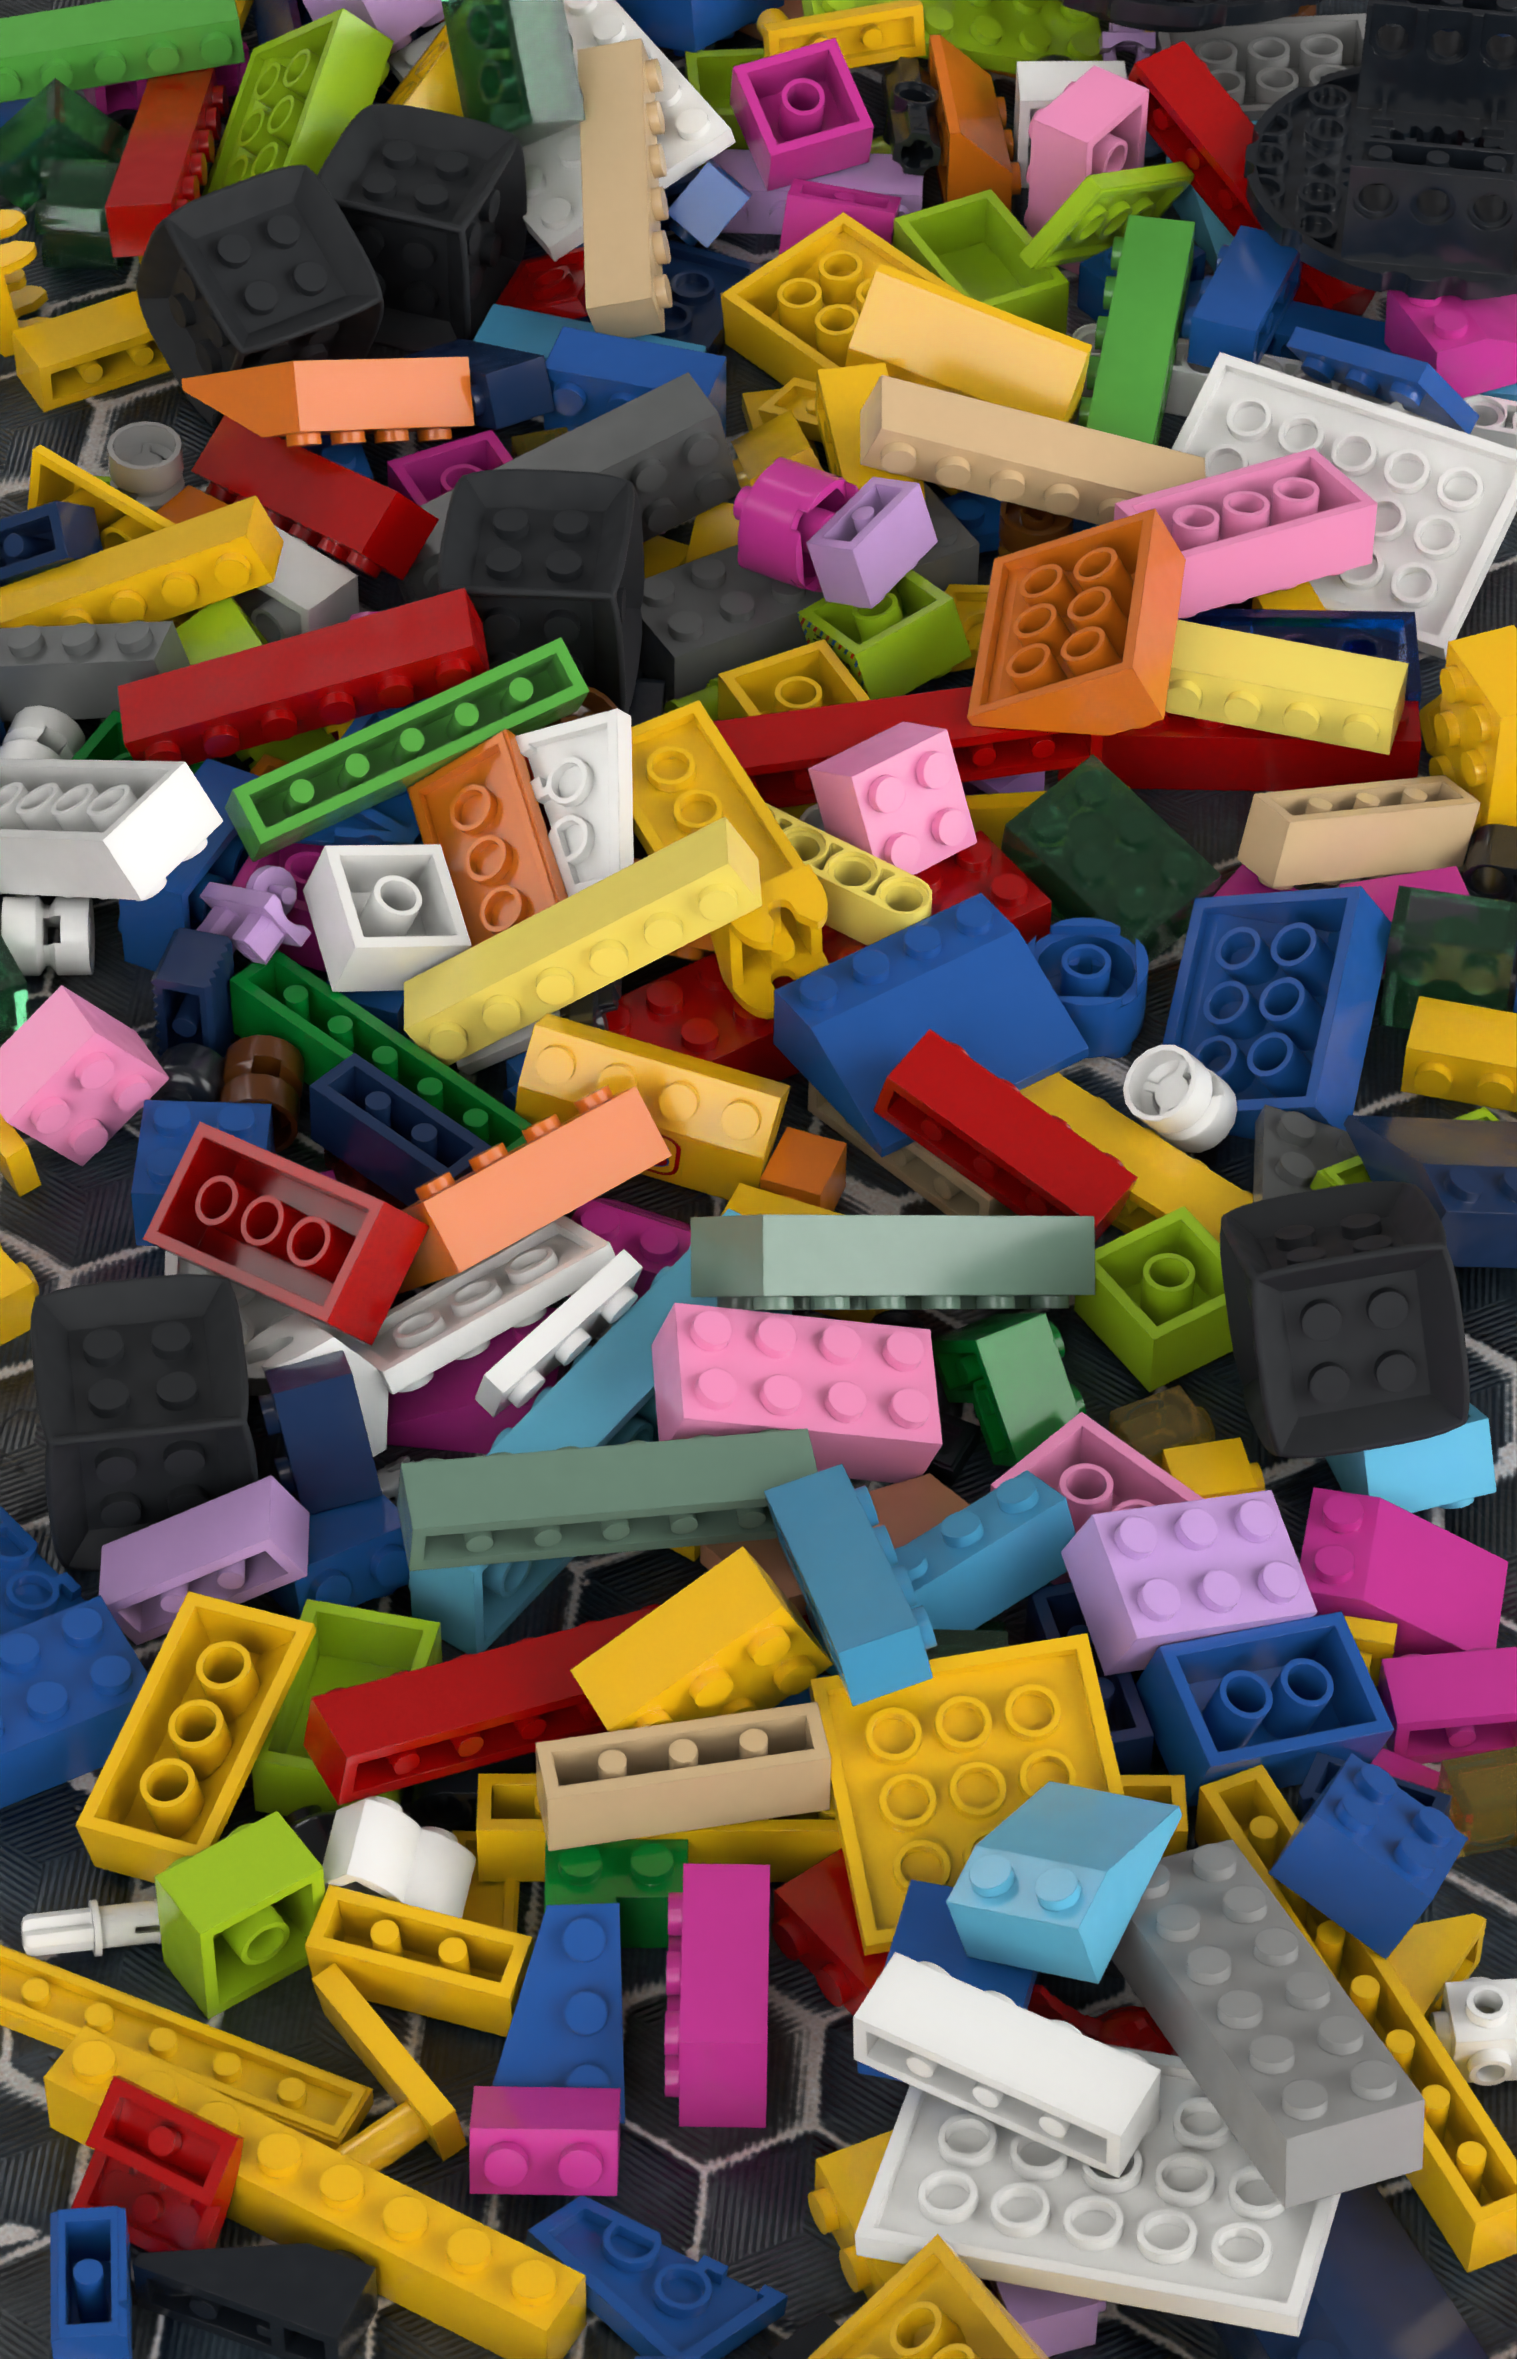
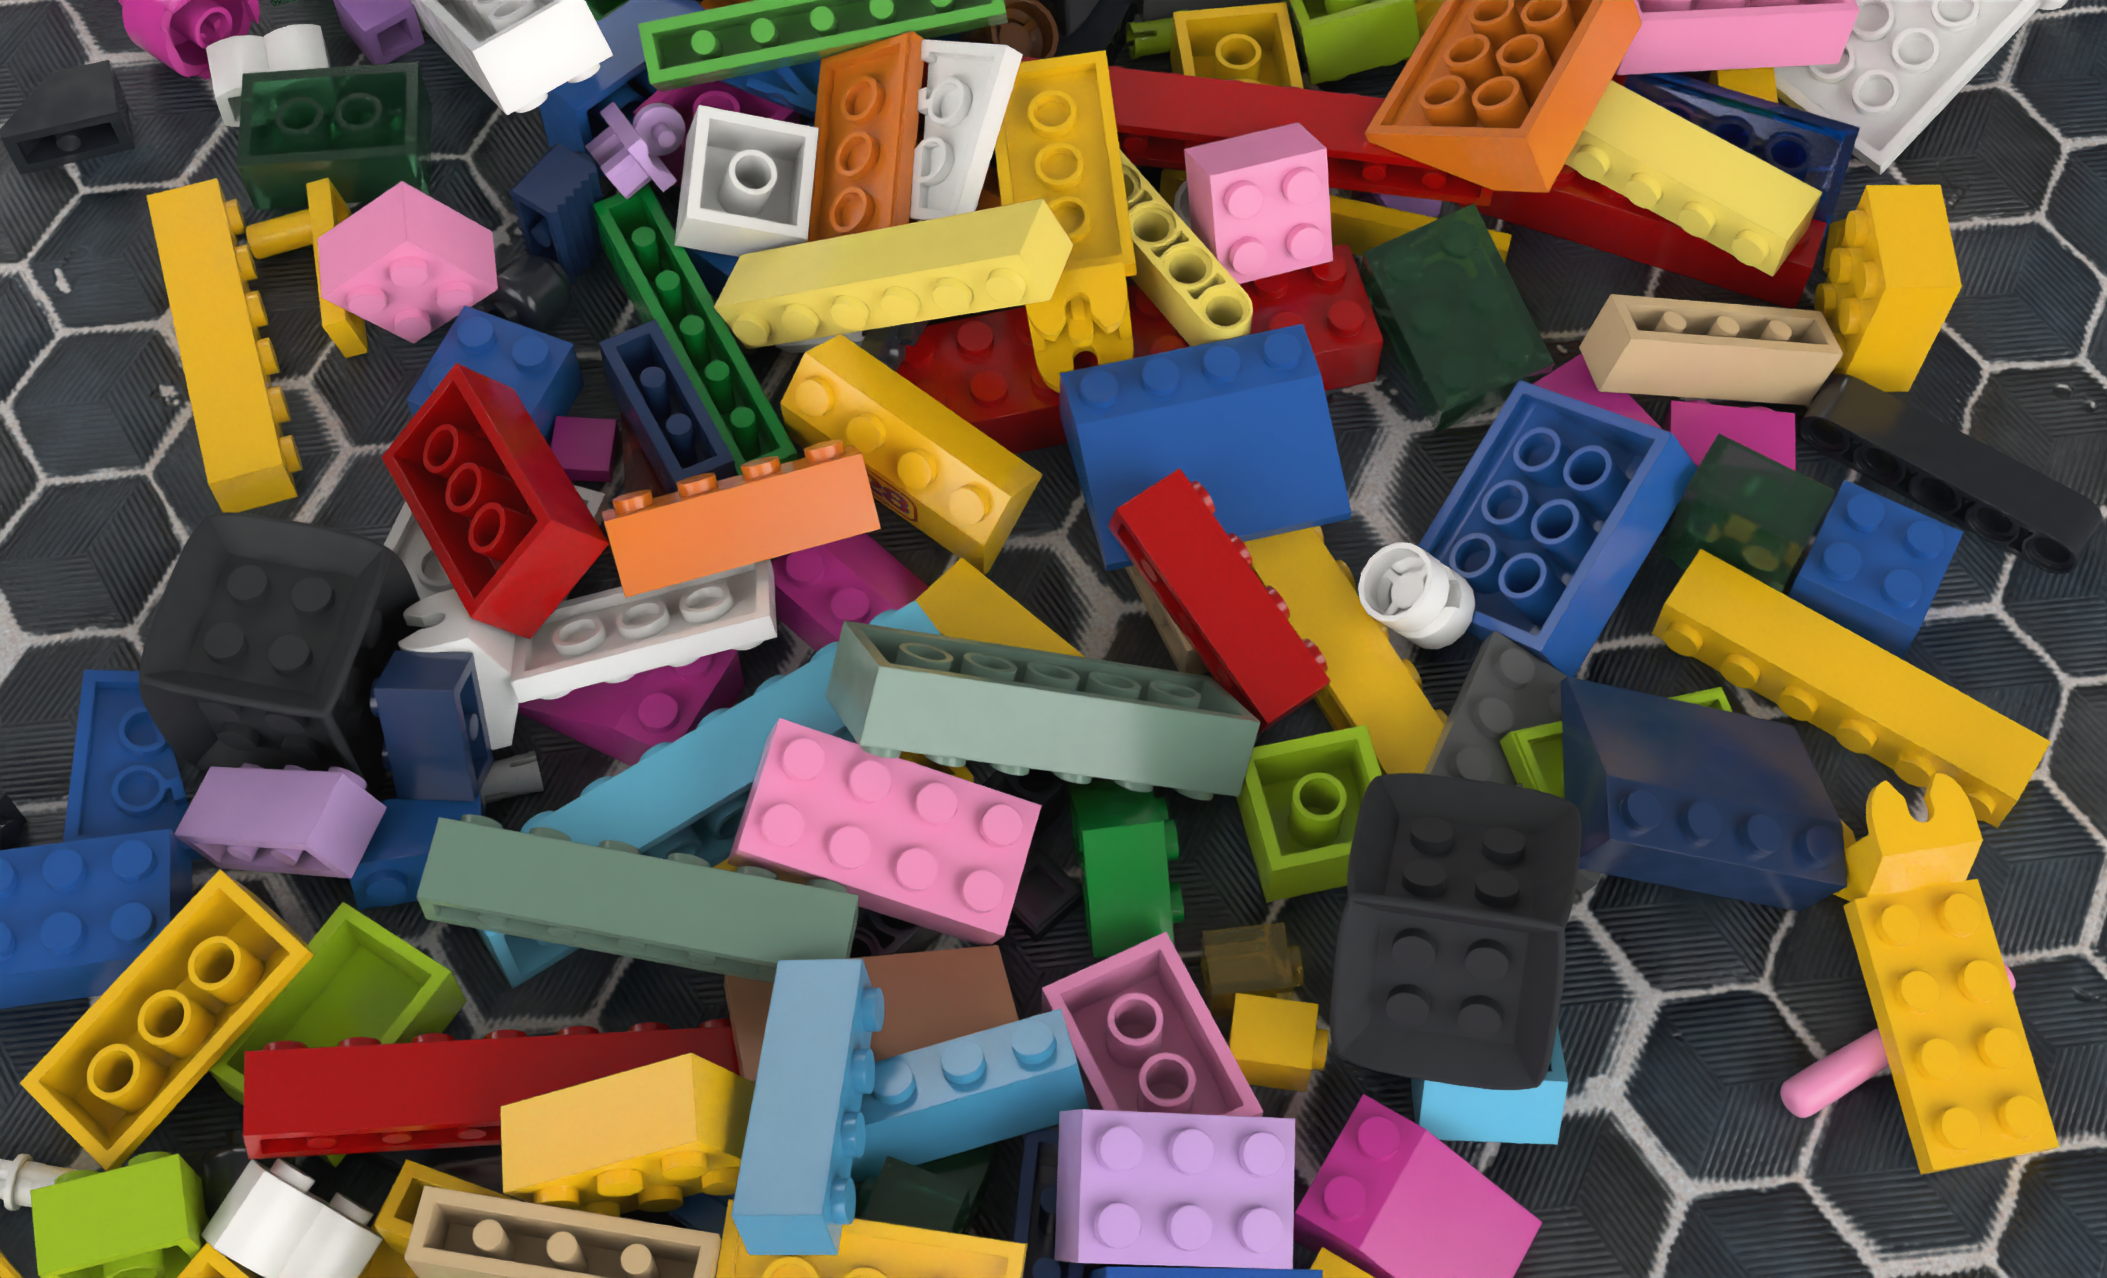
camera: 20 degrees right, 15 degrees up
(26, 934) = (463, 110): white wheel -> none
(267, 1072) = (587, 311): reddish brown wheel -> none
(561, 1336) = (687, 699): white wing -> none
(807, 1169) = (1034, 563): orange brick -> none
(1097, 980) = (1387, 437): blue brick -> none

